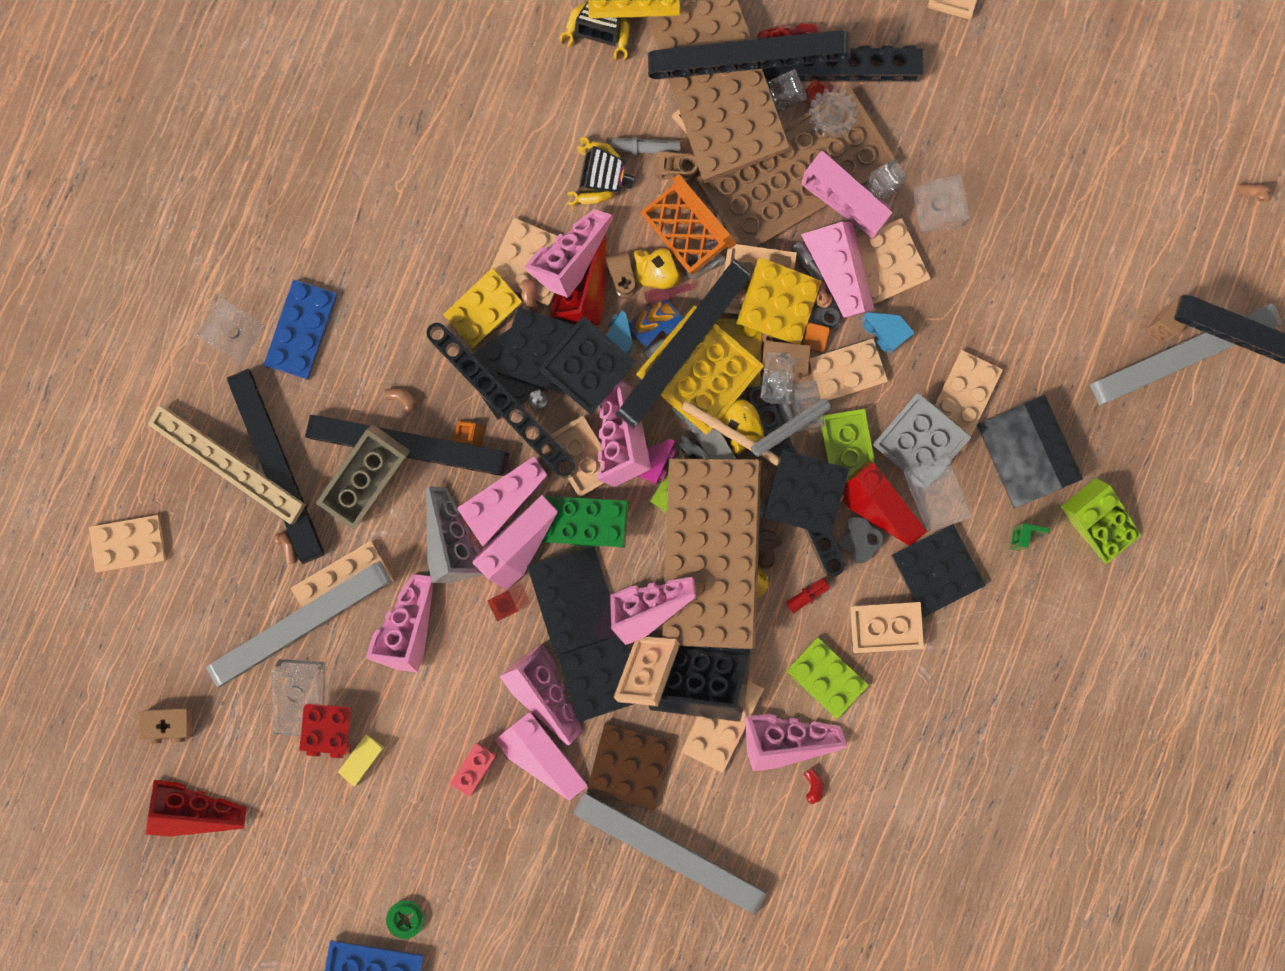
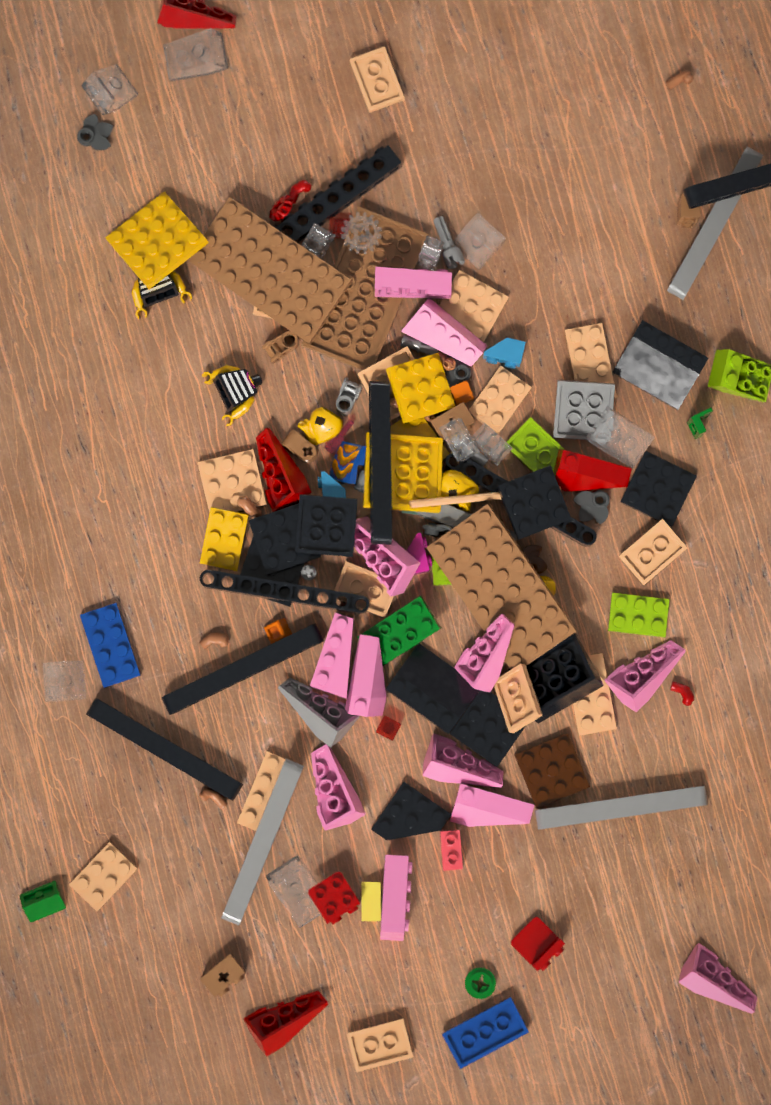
camera: 40 degrees left, 0 degrees up
(51, 524) = (42, 901): none -> green panel
(226, 464) = (131, 772): tan plate -> none
(263, 905) = (379, 1045): none -> light nougat plate
(363, 476) = (231, 711): dark tan brick -> none
(384, 774) = (394, 897): none -> bright pink wedge
(460, 705) = (410, 815): none -> black plate
(488, 925) = (537, 944): none -> red bracket
(568, 258) = (256, 463): bright pink wedge -> none
(650, 146) = (247, 349): light grey pin -> none
(704, 217) = (320, 365): orange fence -> none
(749, 55) = (277, 237): black beam -> none
(790, 427) = (492, 466): light grey axle -> none
(807, 595) = (585, 569): red axle -> none
(906, 196) = (451, 252): none -> light grey piece

